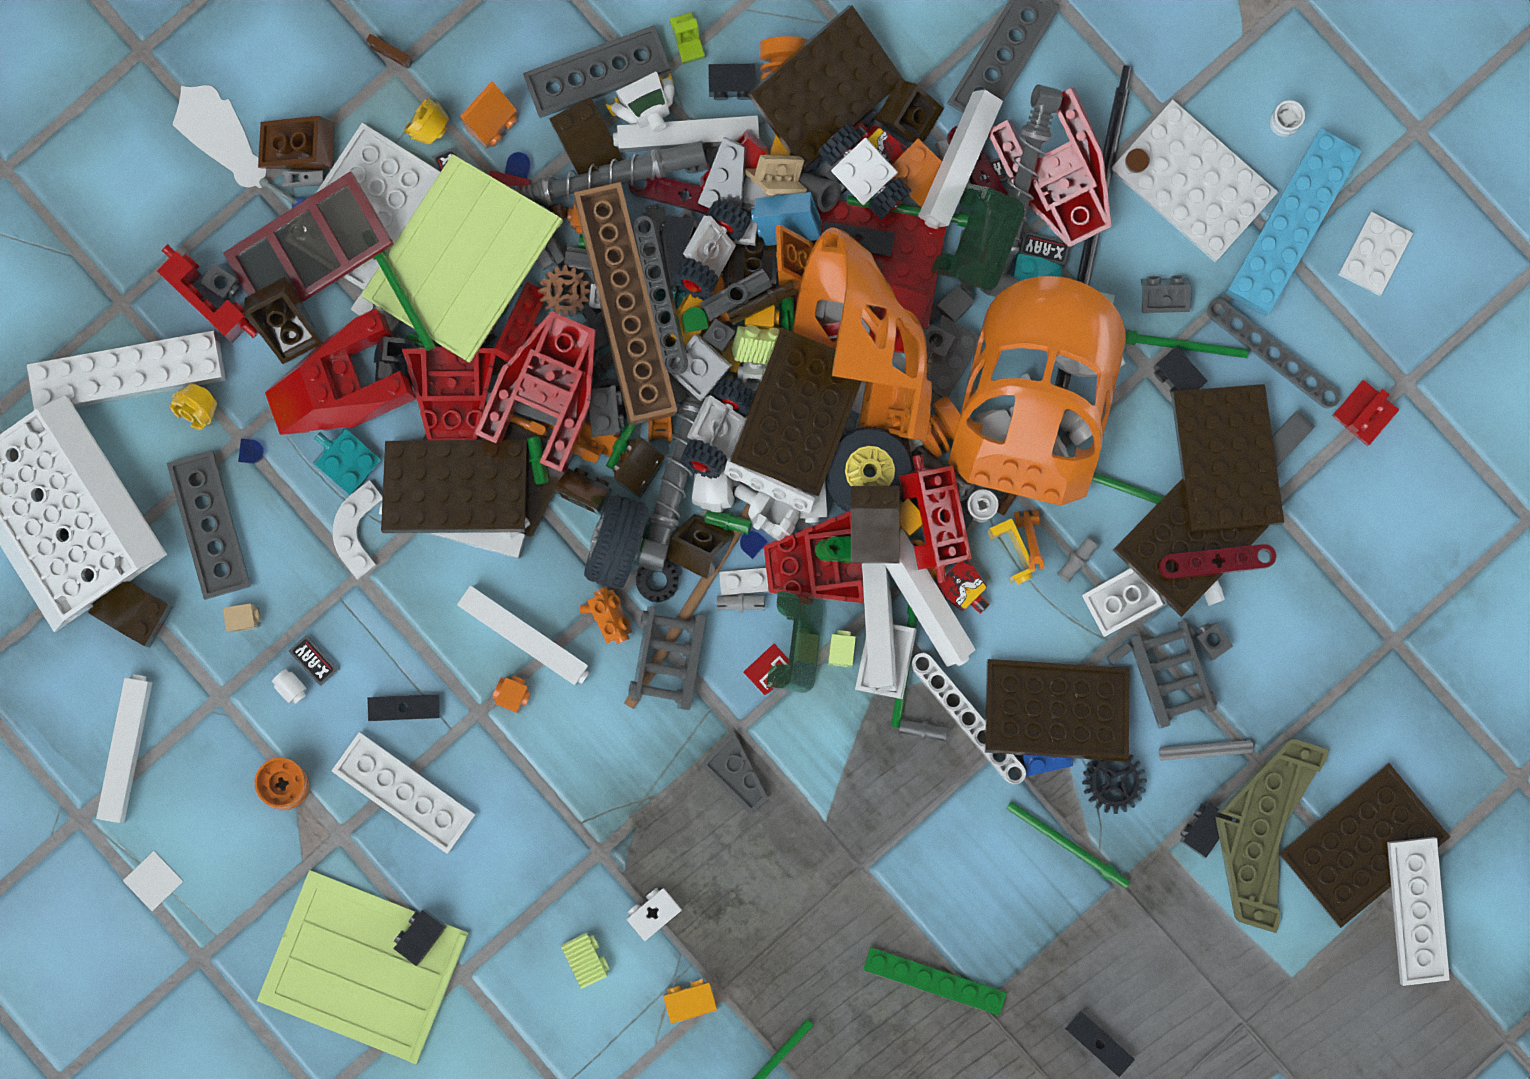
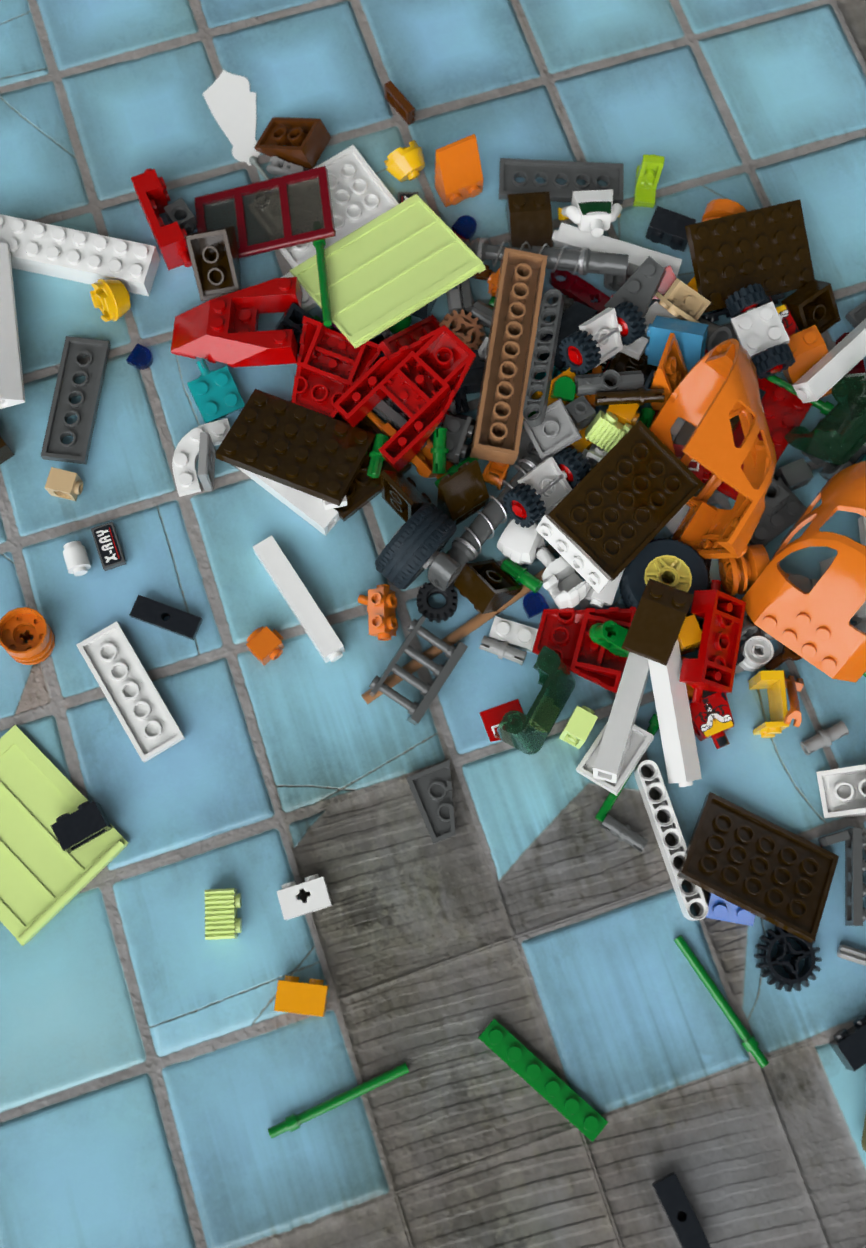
camera: 20 degrees right, 10 degrees down
(372, 537) = (206, 461): none -> light grey tile
(598, 434) = (439, 451): none -> green pin

